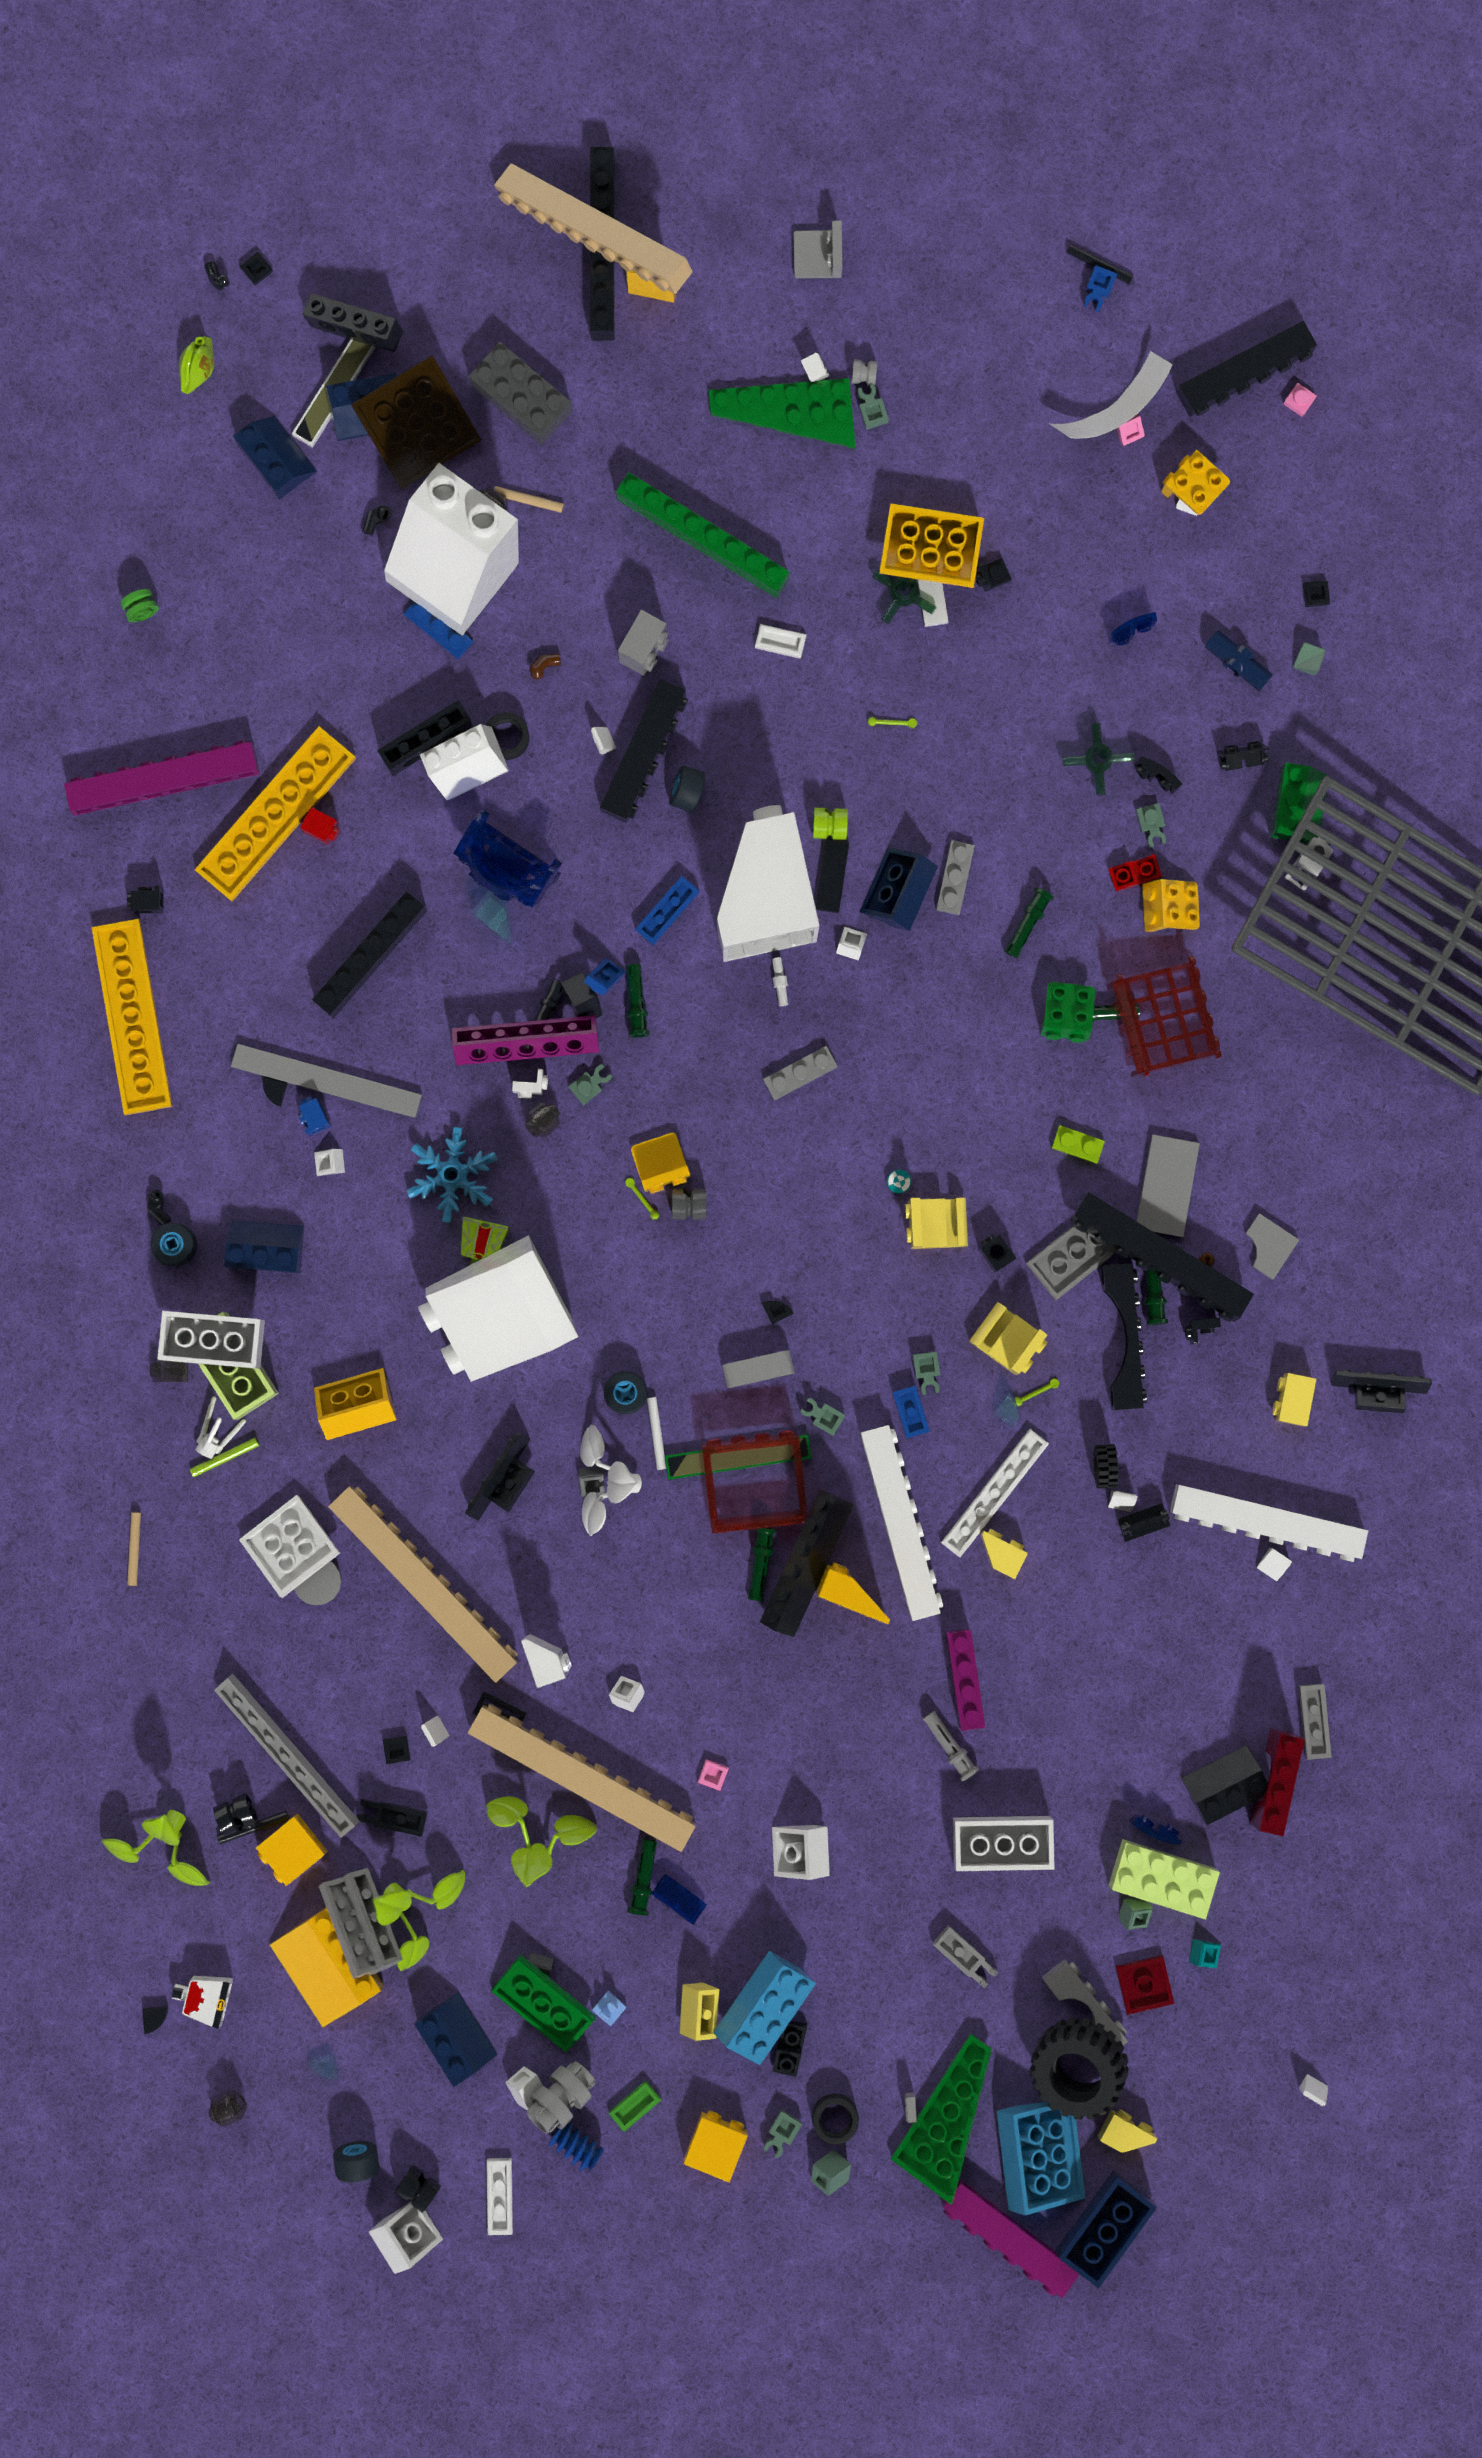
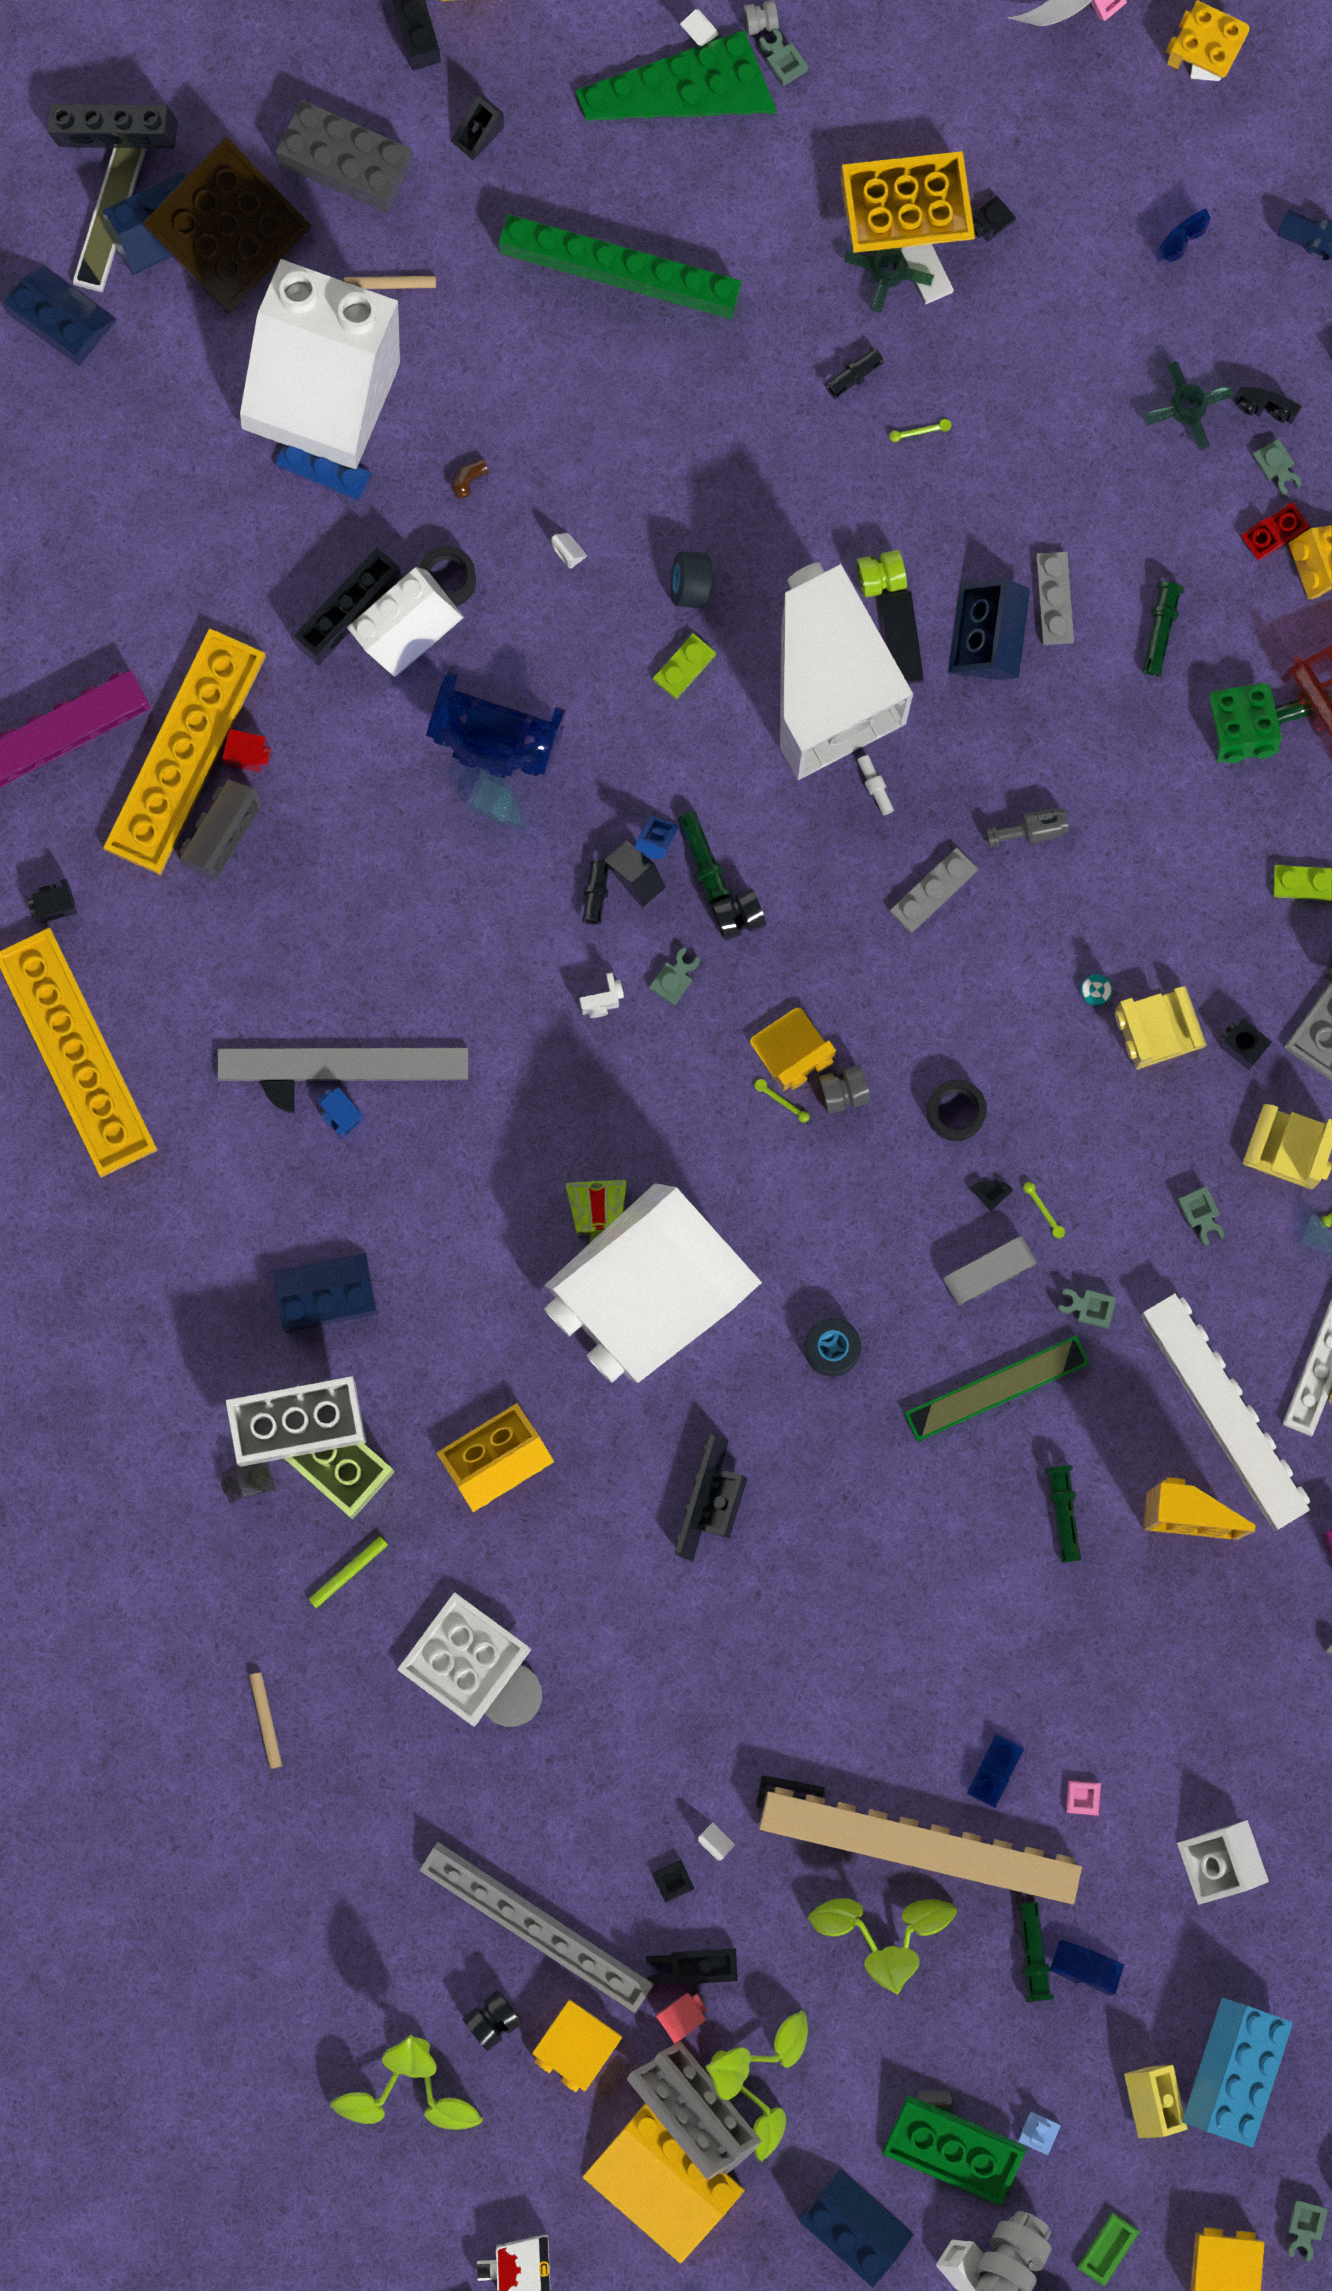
camera: 15 degrees left, 5 degrees down
(155, 1207) = (171, 1281): black arm -> none
(181, 1241) = (216, 1328): black wheel -> none
(208, 1444) = (324, 1560): white plant -> none
(261, 1824) = (526, 2027): black bar -> none
(284, 880) = (220, 829): none -> dark grey slope
(329, 1162) = (375, 1164): white slope -> none
(369, 954) = (353, 892): black brick -> none
(372, 1851) = (682, 2016): none -> coral slope
(375, 517) = (206, 355): black arm -> none
(423, 1584) = (648, 1659): tan brick -> none
(443, 1170) = (533, 1124): dark azure piece -> none
(525, 1040) = (580, 943): magenta brick -> none
(542, 1120) = (629, 1036): clear smoke head -> none
(545, 1660) = (833, 1708): white slope -> none
(591, 1481) = (822, 1472): dark grey slope -> none
(619, 1481) = (865, 1457): white plant -> none
(627, 398) = (478, 127): none -> black slope
(627, 1693) = (944, 1726): white slope -> none
(643, 642) = (585, 417): light grey brick -> none
(643, 751) = (623, 549): black brick -> none
(649, 1051) = (744, 905): none -> black wheel
(654, 1736) = (995, 1770): none -> clear blue slope
(656, 1433) = (885, 1388): white bar -> none
(664, 852) = (684, 666): none -> lime plate
(667, 911) = (709, 736): blue plate -> none
(755, 1521) = (996, 1367): clear red window -> none
(768, 1224) = (965, 1088): none -> black tyre
(780, 641) = (753, 369): white tile -> none
(790, 2049) = (1283, 2119): black slope -> none
(806, 1563) = (1124, 1494): black brick -> none
(817, 1352) = (1058, 1231): none -> lime hinge
(851, 943) = (950, 714): white slope -> none
(855, 664) = (854, 373): none -> black pin
(889, 1046) = (1035, 827): none -> dark grey piece
(910, 1412) = (1196, 1271): blue plate -> none

